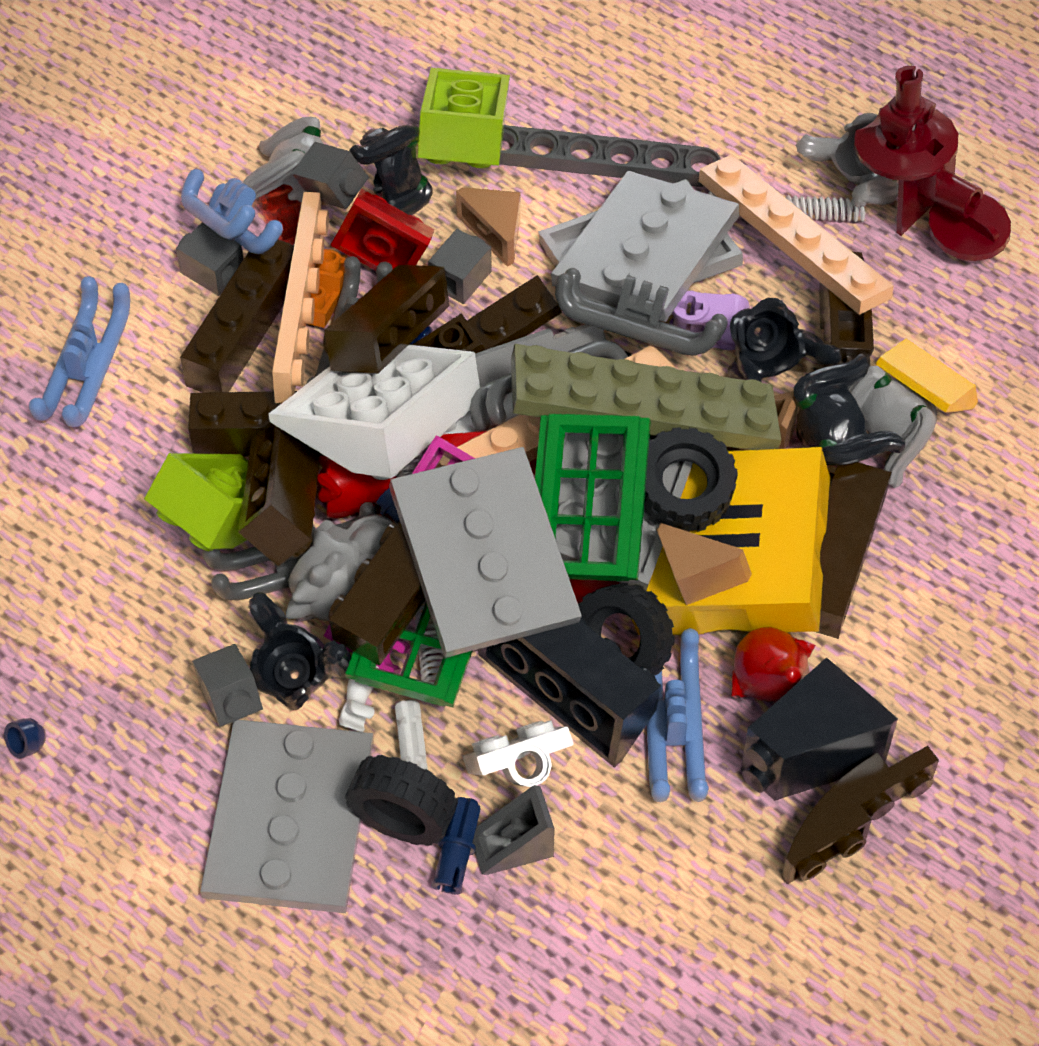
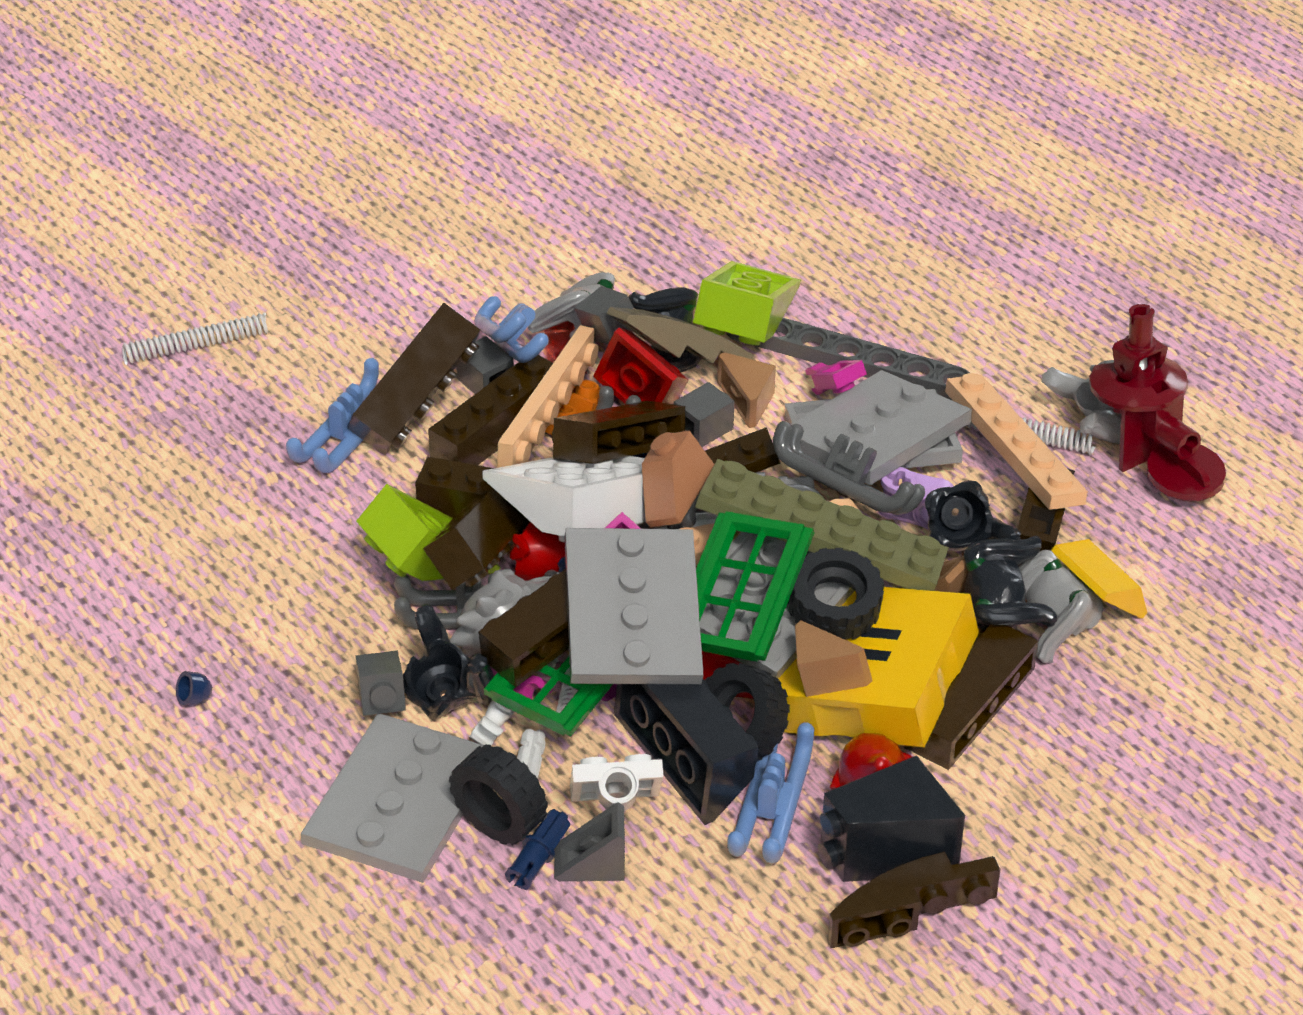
camera: 15 degrees right, 15 degrees down
(146, 296) = (414, 379): none -> dark brown brick
(410, 180) = (675, 335): none -> dark tan slope
(474, 376) = (673, 477): none -> nougat slope
(586, 191) = (837, 377): none -> dark pink plate

